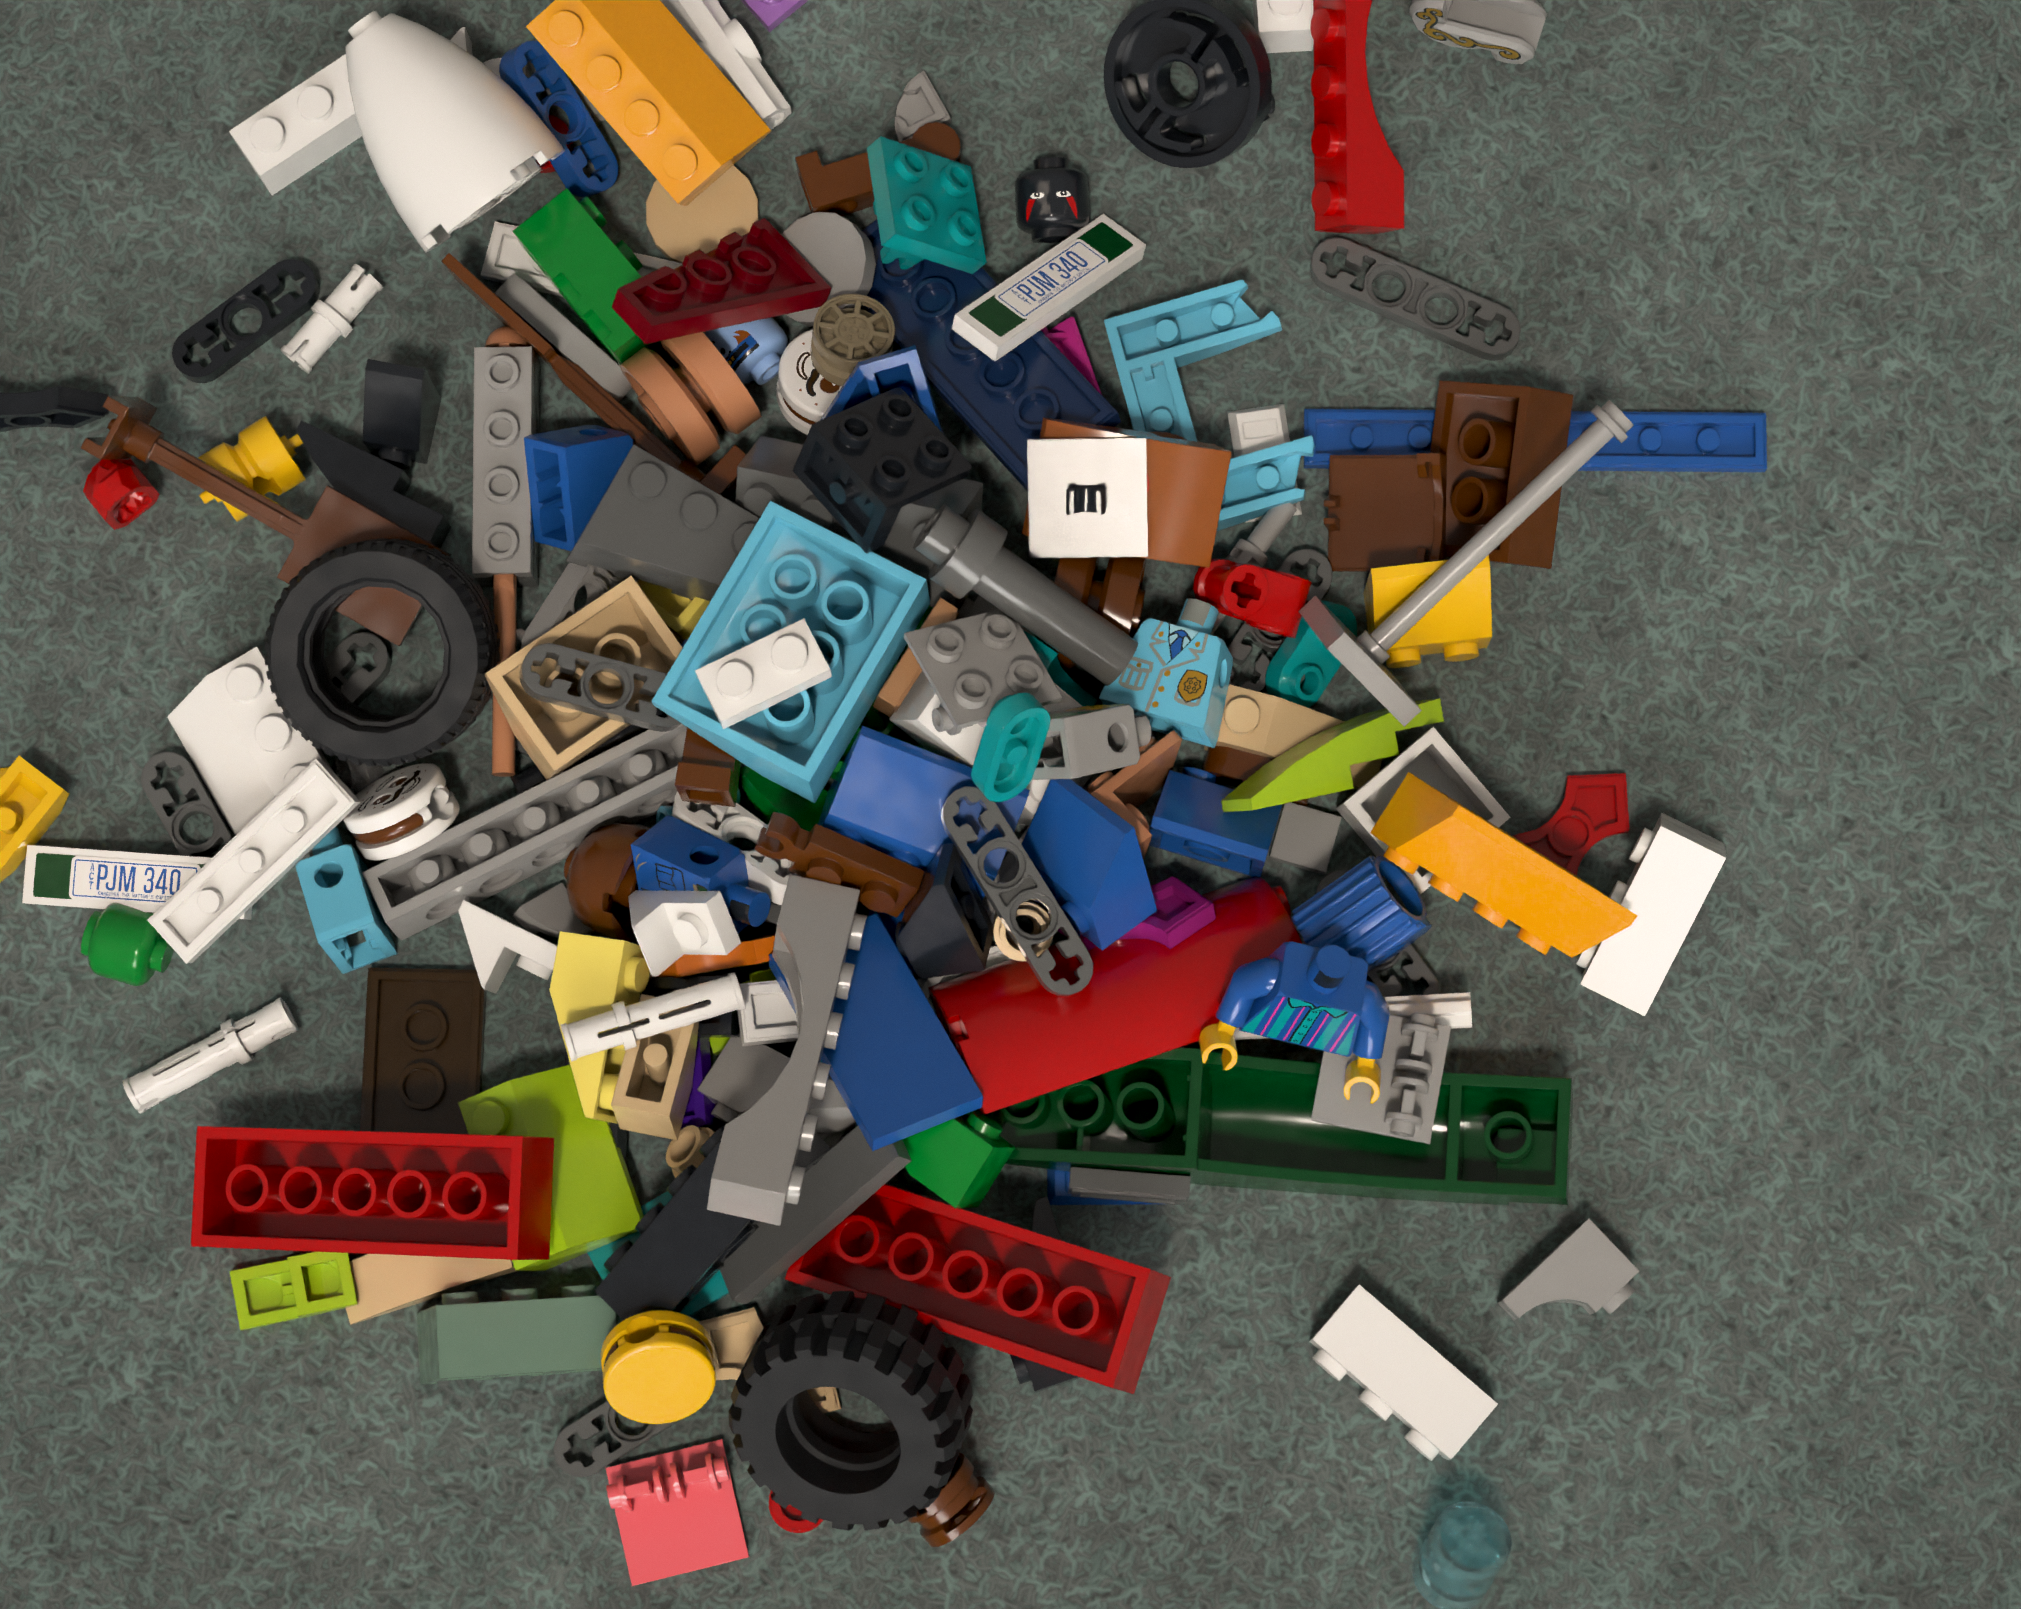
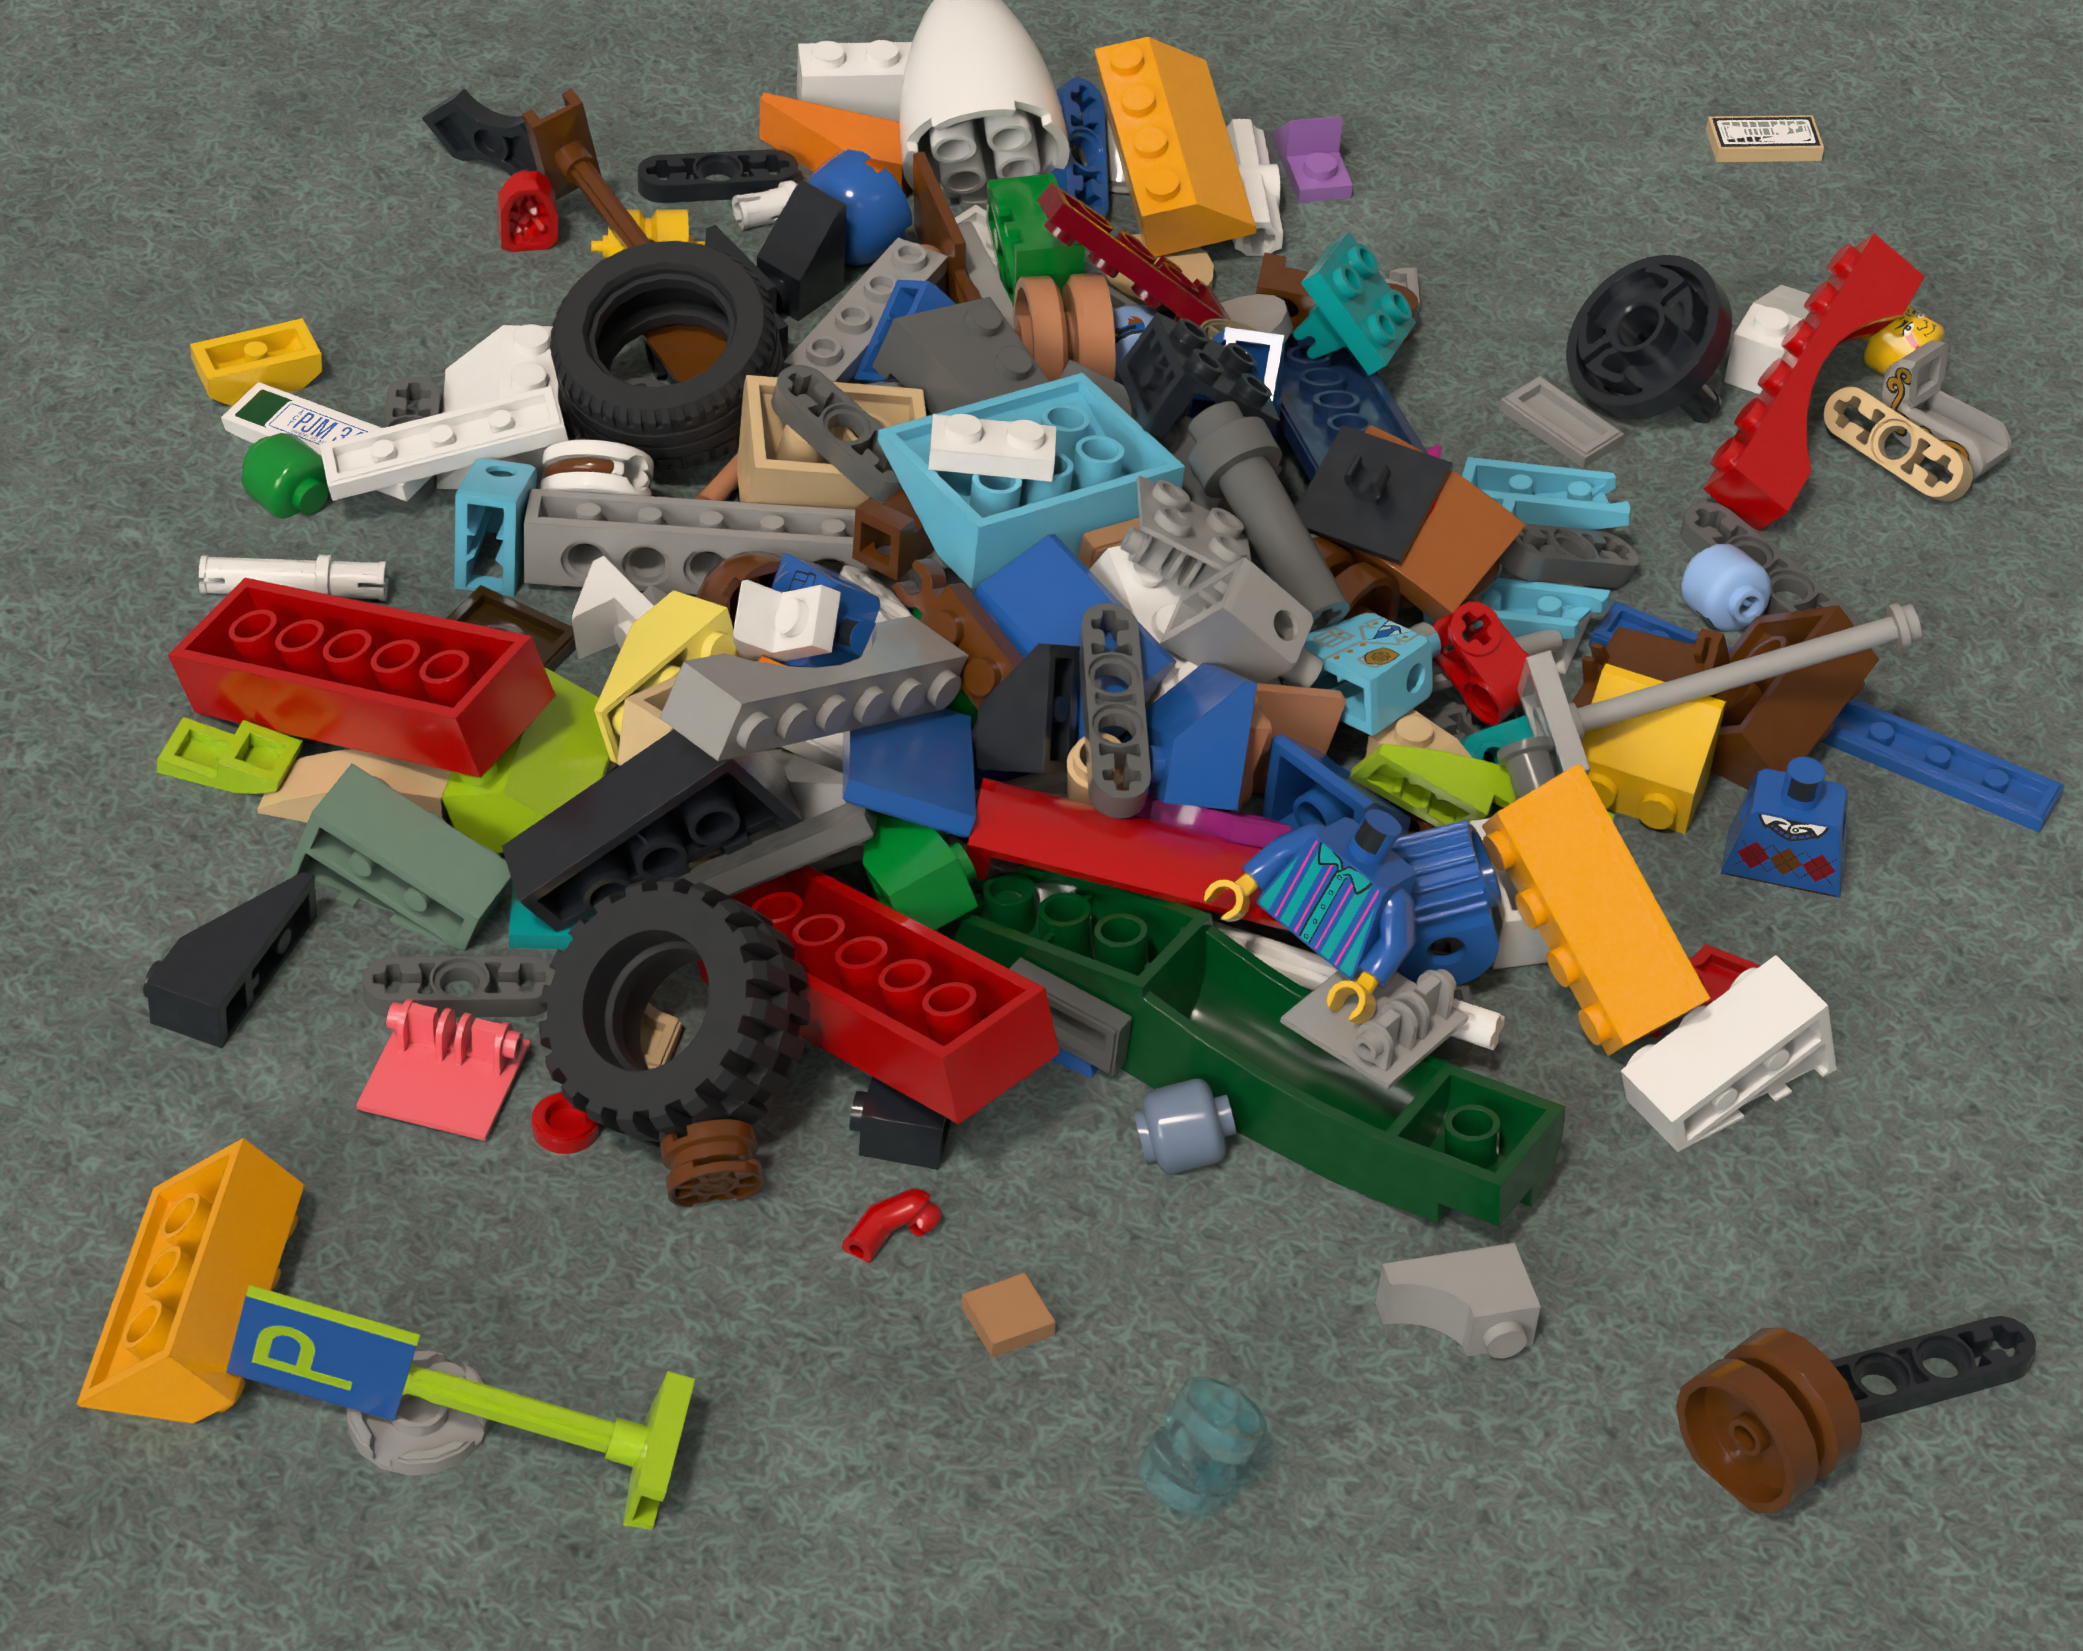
camera: 20 degrees right, 35 degrees down
(340, 222) = (819, 132): none -> orange slope
(408, 327) = (874, 203): none -> blue cylinder
(445, 1524) = (227, 963): none -> black slope
(582, 1036) = (673, 646): white pin -> none
(658, 1367) = (514, 914): yellow head -> none
(1010, 746) = (1184, 577): teal plate -> none
(1048, 287) = (1431, 403): tile -> none
(1052, 200) = (1473, 379): black head -> none
(1099, 1446) = (885, 1216): none -> red arm
(1147, 198) = (1561, 422): none -> light grey tile
(1238, 1488) = (1008, 1314): none -> medium nougat tile
(1251, 378) = (1570, 556): none -> dark grey beam
(1272, 1231) = (1184, 1126): none -> sand blue head
(1377, 740) = (1528, 763): none -> dark grey bush
(1391, 344) = (1723, 585): none -> light blue head
(1401, 1375) = (1239, 1293): white brick -> none
(1469, 52) = (1920, 439): none -> tan beam
(1580, 627) = (1791, 830): none -> blue torso
(1861, 1277) = (1769, 1419): none -> reddish brown wheel
(1927, 1144) = (1958, 1345): none -> black beam

